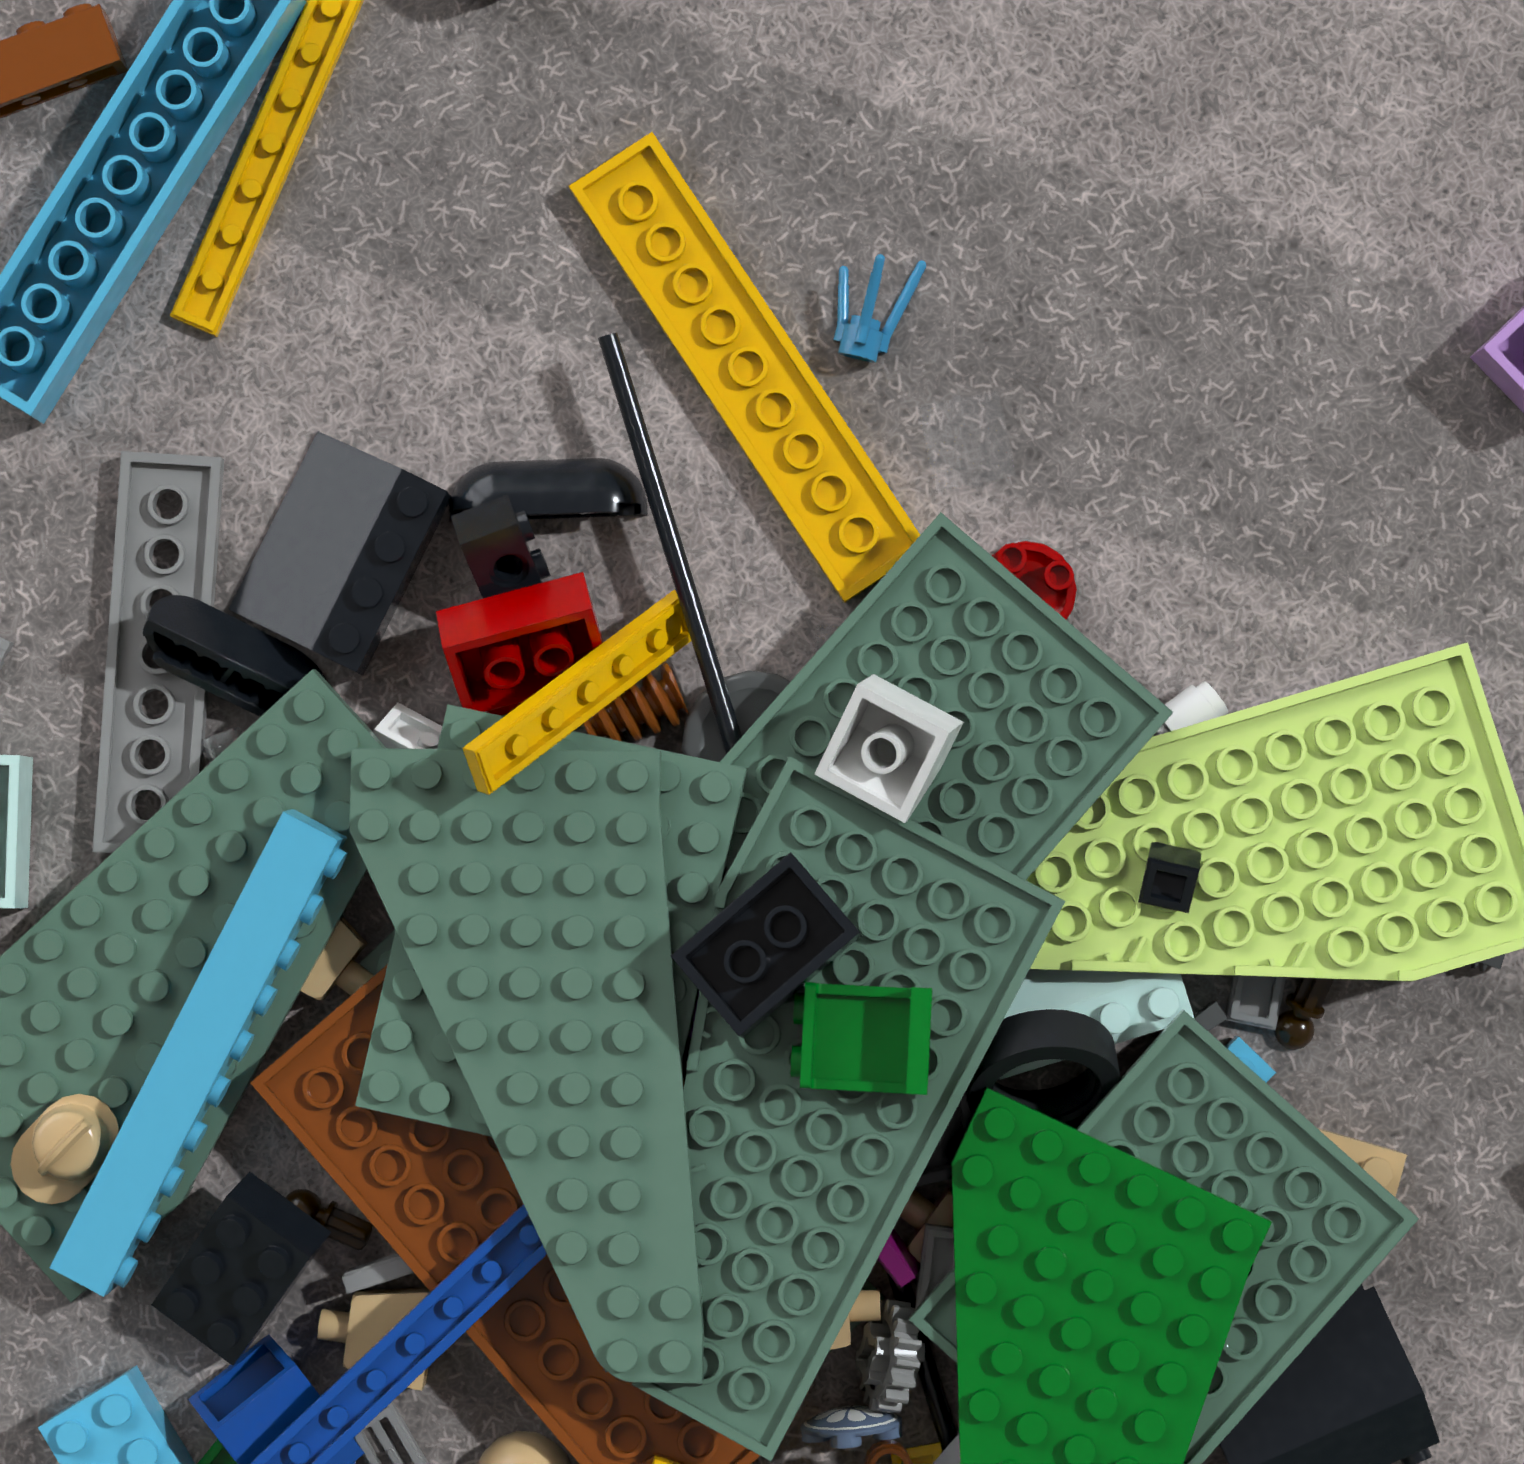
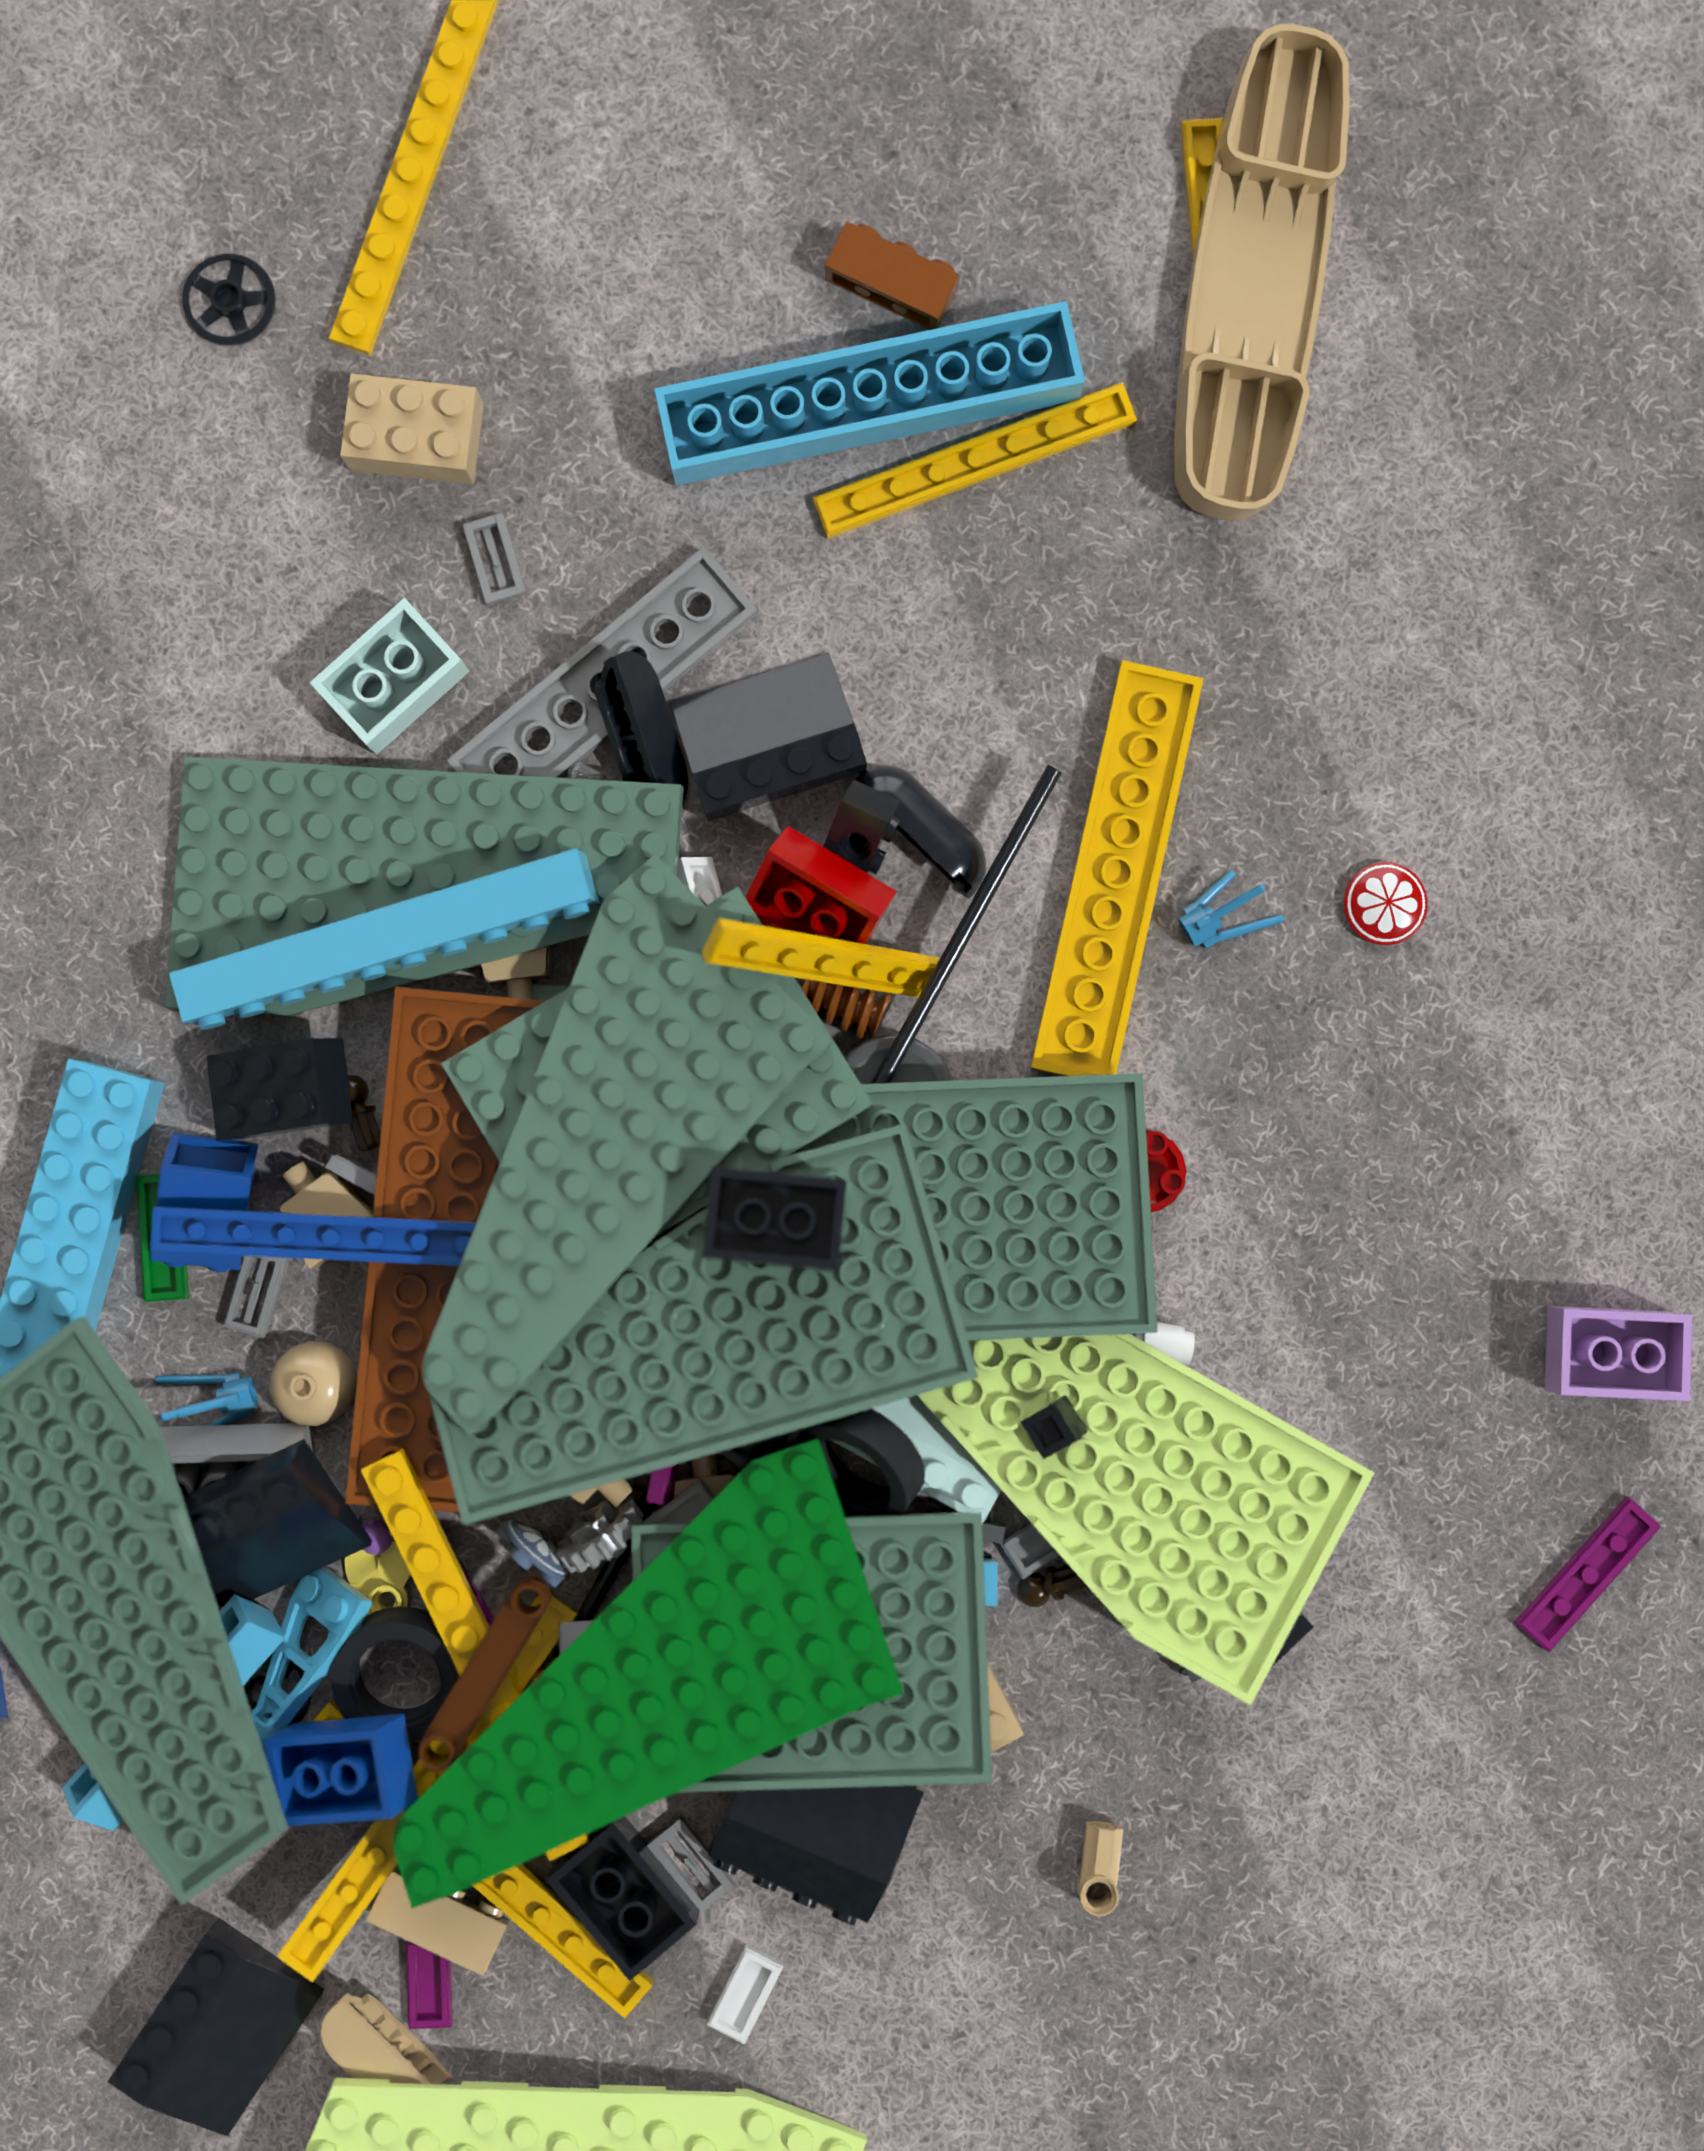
camera: 45 degrees right, 0 degrees up
(64, 1148) = (251, 913): tan piece -> none
(863, 1038) = (775, 1334): green panel -> none
(888, 747) = (968, 1178): white slope -> none
(995, 162) = (1385, 903): none -> dish

